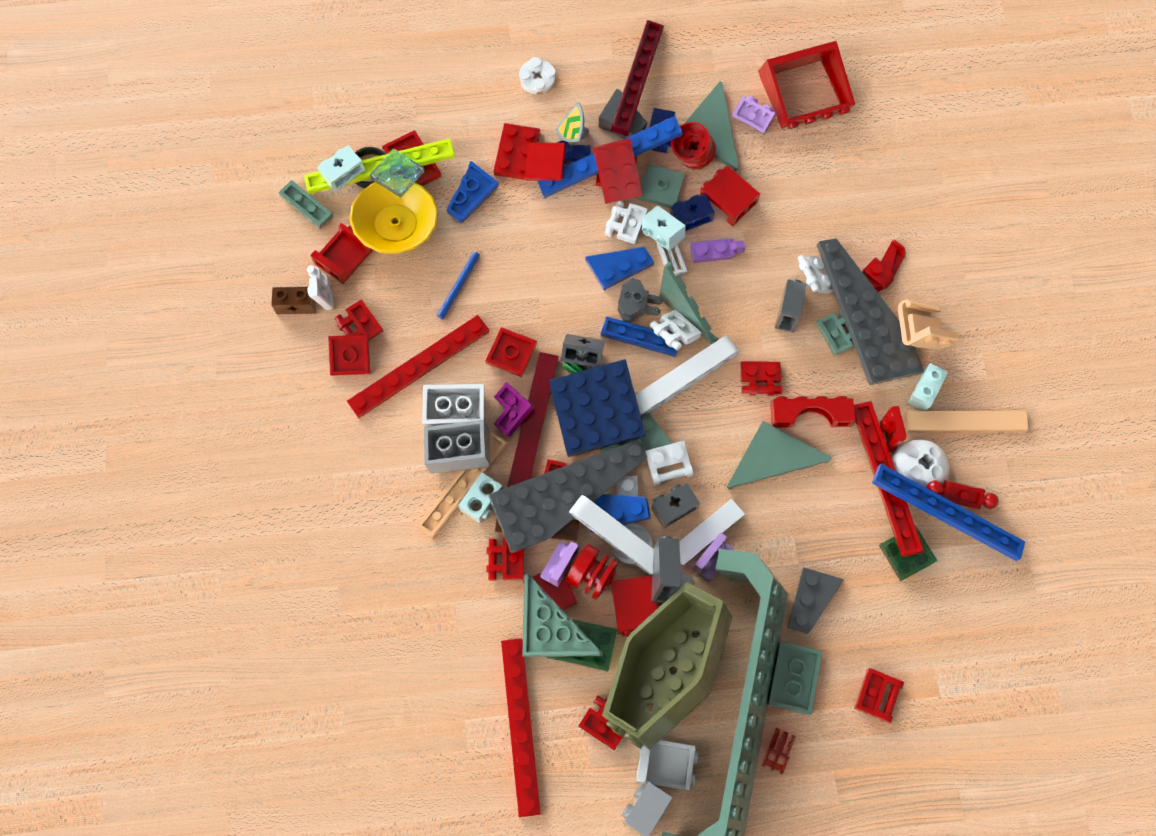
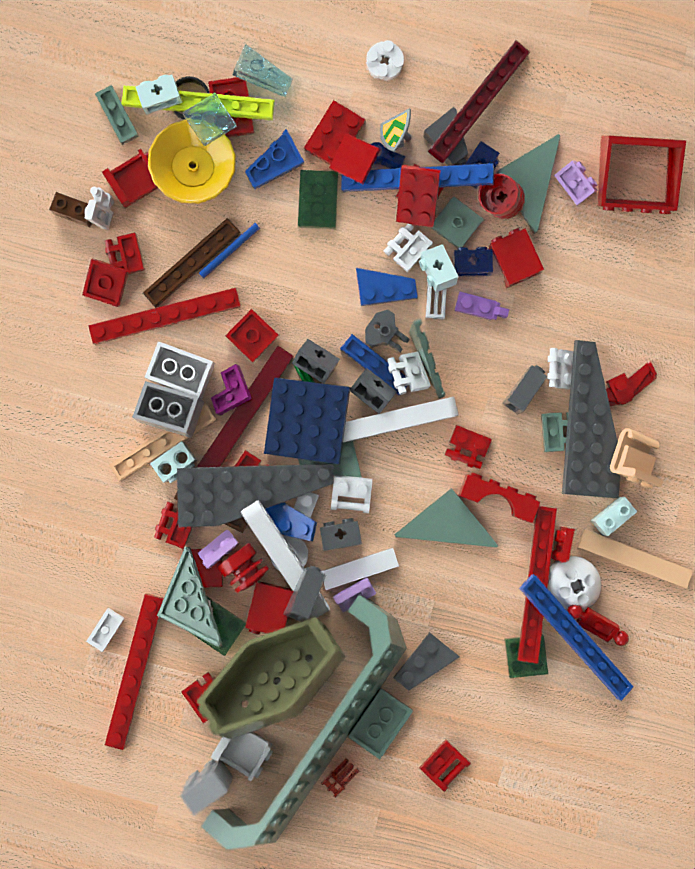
camera: 20 degrees right, 15 degrees up
(426, 309) = (191, 262): none -> reddish brown tile
(428, 122) = (261, 72): none -> clear light blue wing
(474, 693) = (105, 629): none -> white plate
(524, 211) = (317, 199): none -> clear green plate
(648, 357) = (372, 390): none -> dark grey brick

